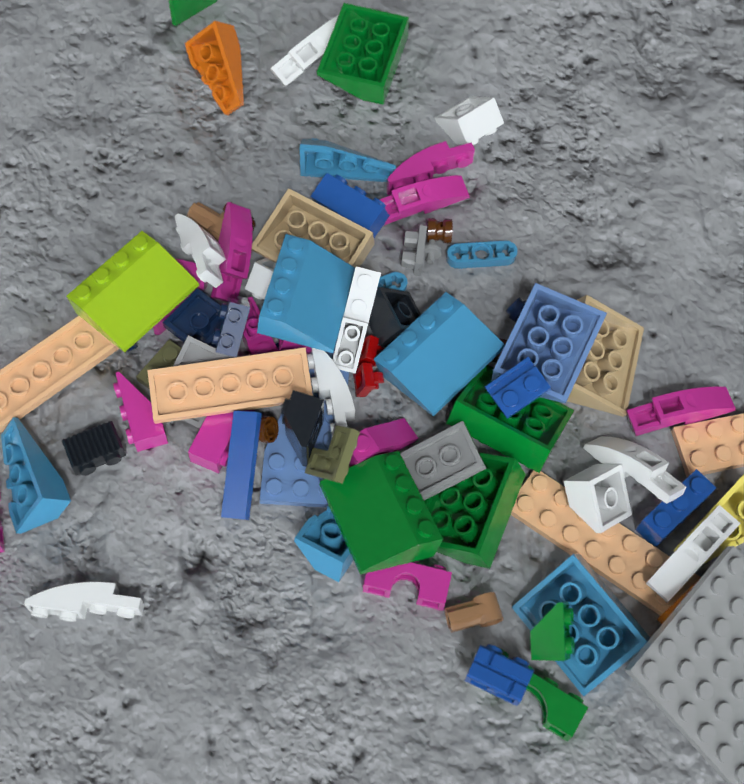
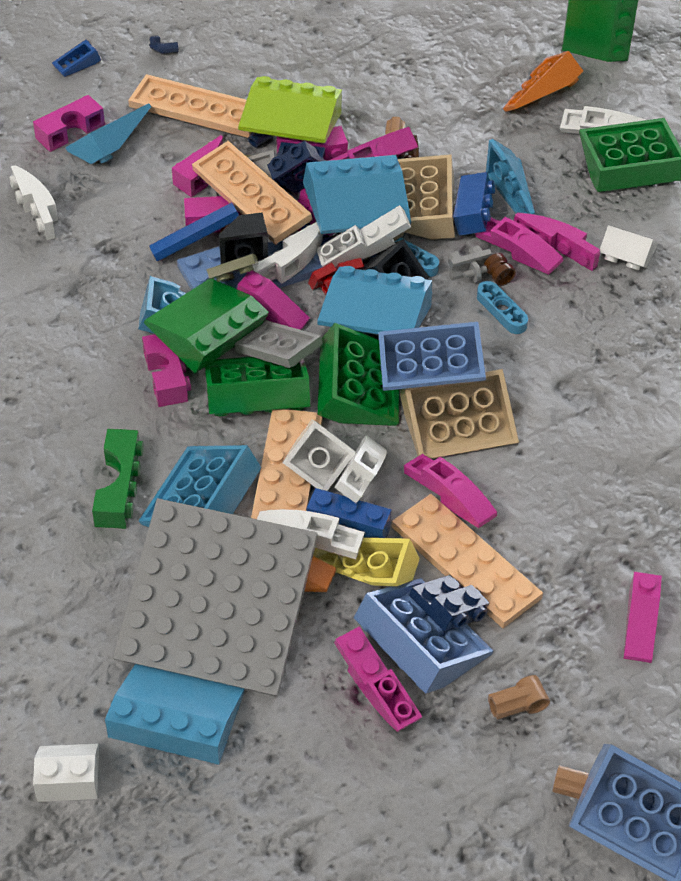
camera: 65 degrees right, 15 degrees down
(94, 449) = (155, 155): black brick -> none
(203, 248) = (355, 132): white slope -> none
(481, 611) = (168, 424): medium nougat piece -> none
(499, 674) = (112, 437): blue brick -> none
(517, 387) = (371, 351): blue plate -> none
(552, 635) = (175, 467): green slope -> none

